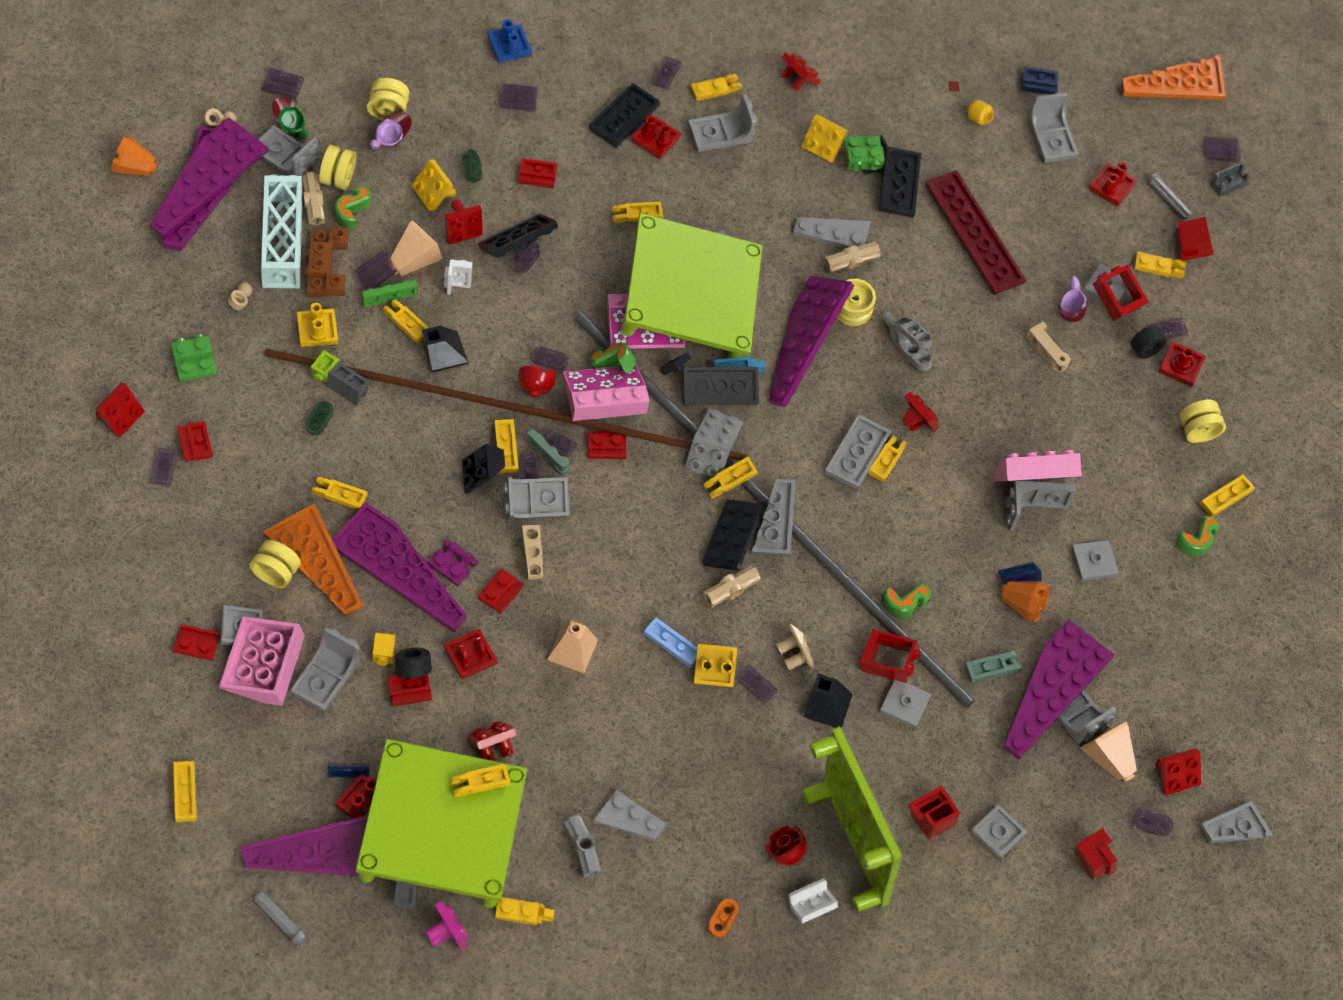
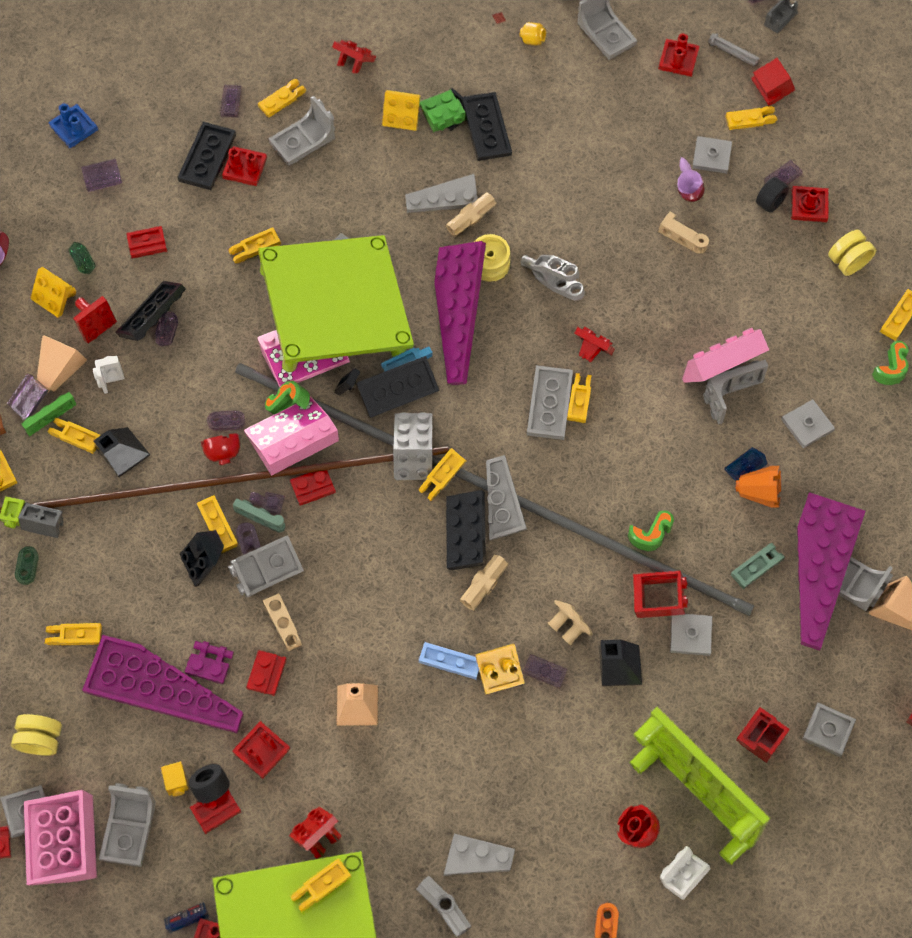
camera: 10 degrees left, 5 degrees up
(319, 557) = (62, 698): orange wing -> none
(975, 232) = (573, 149): dark red plate -> none
(1108, 297) = (719, 166): red window -> none

